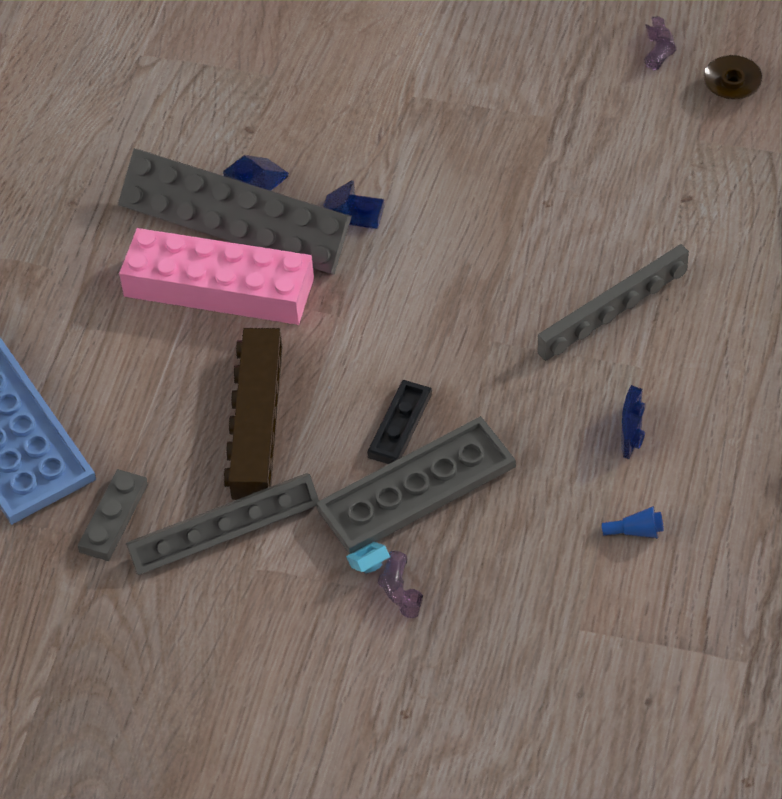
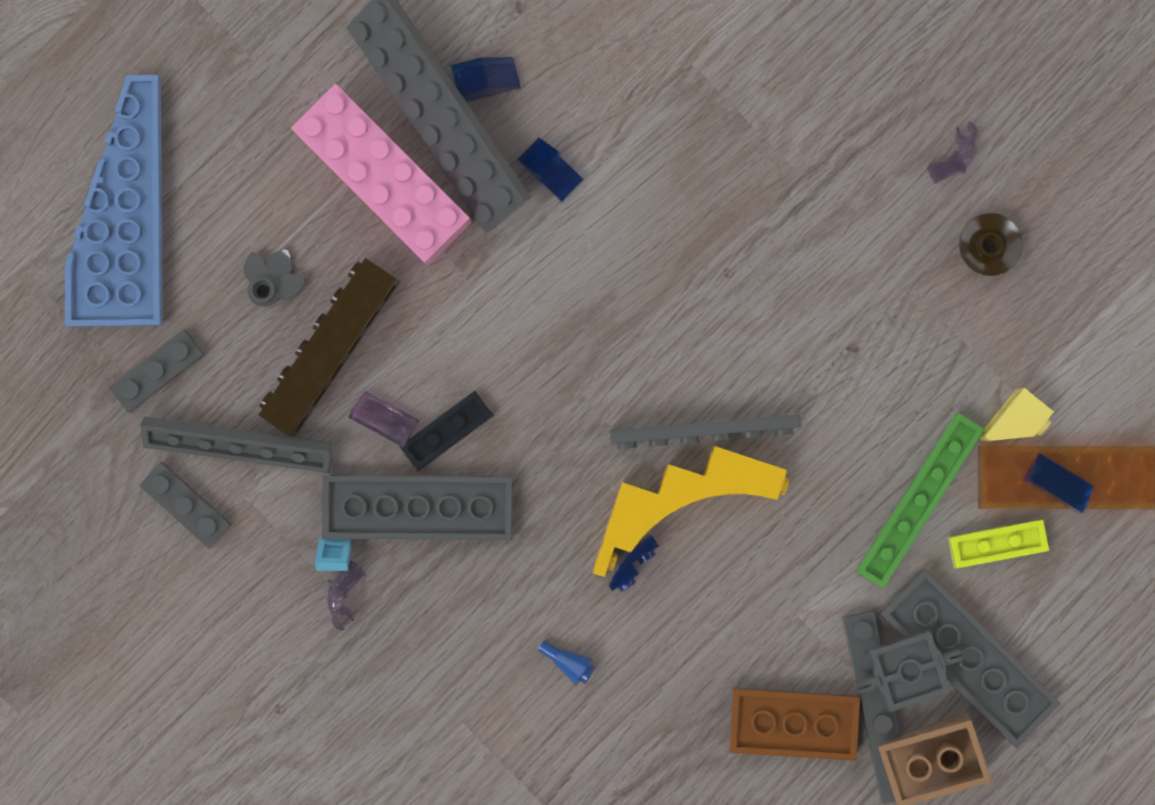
camera: 30 degrees right, 35 degrees up
(170, 394) = (275, 274): none -> dark grey plate
(207, 599) = (185, 505): none -> dark grey plate
(326, 439) = (384, 419): none -> clear purple plate
(655, 322) = (640, 509): none -> yellow arch

